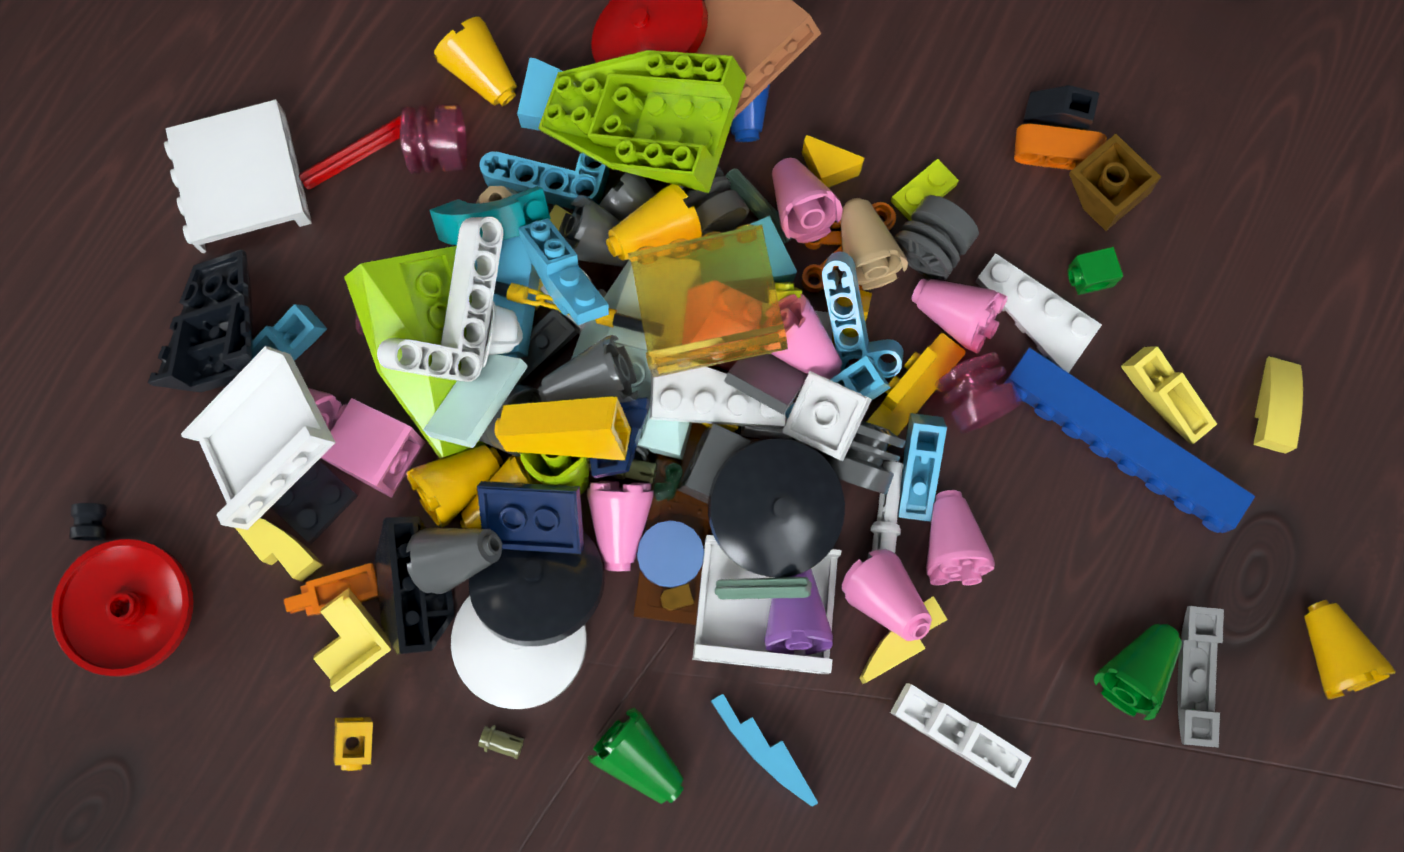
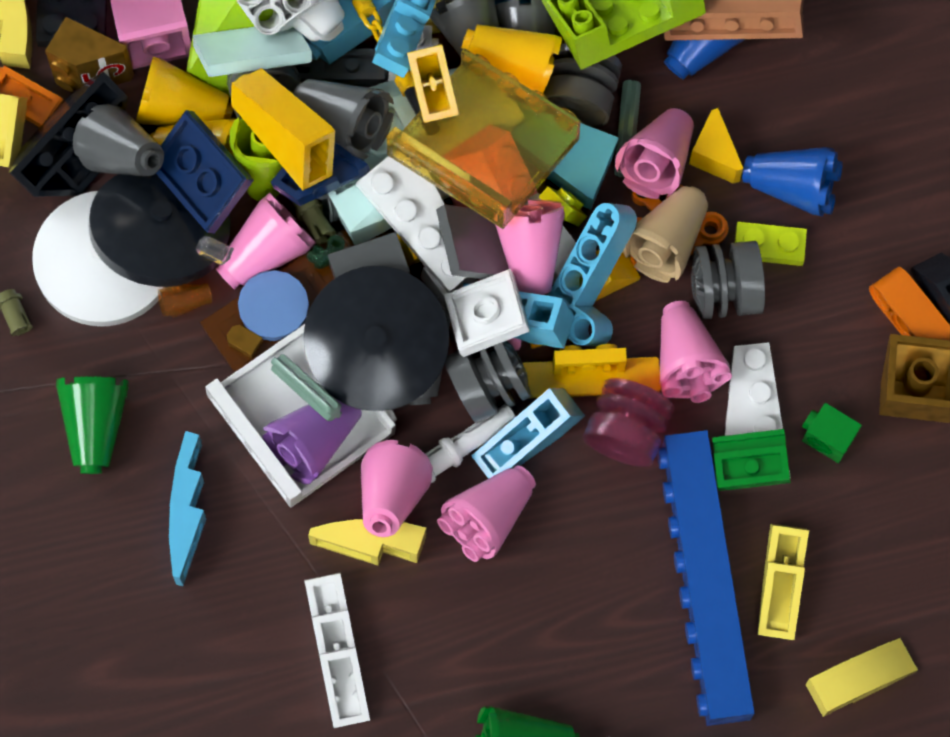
camera: 45 degrees right, 5 degrees down
(357, 521) = (81, 54): none -> pearl gold slope
(597, 559) = (214, 250): none -> clear piece
(606, 614) = (183, 298): none -> clear orange cone
(636, 298) = (432, 83): none -> yellow slope
(900, 131) = (796, 177): none -> blue cone
(1075, 337) = (751, 460): none -> green plate

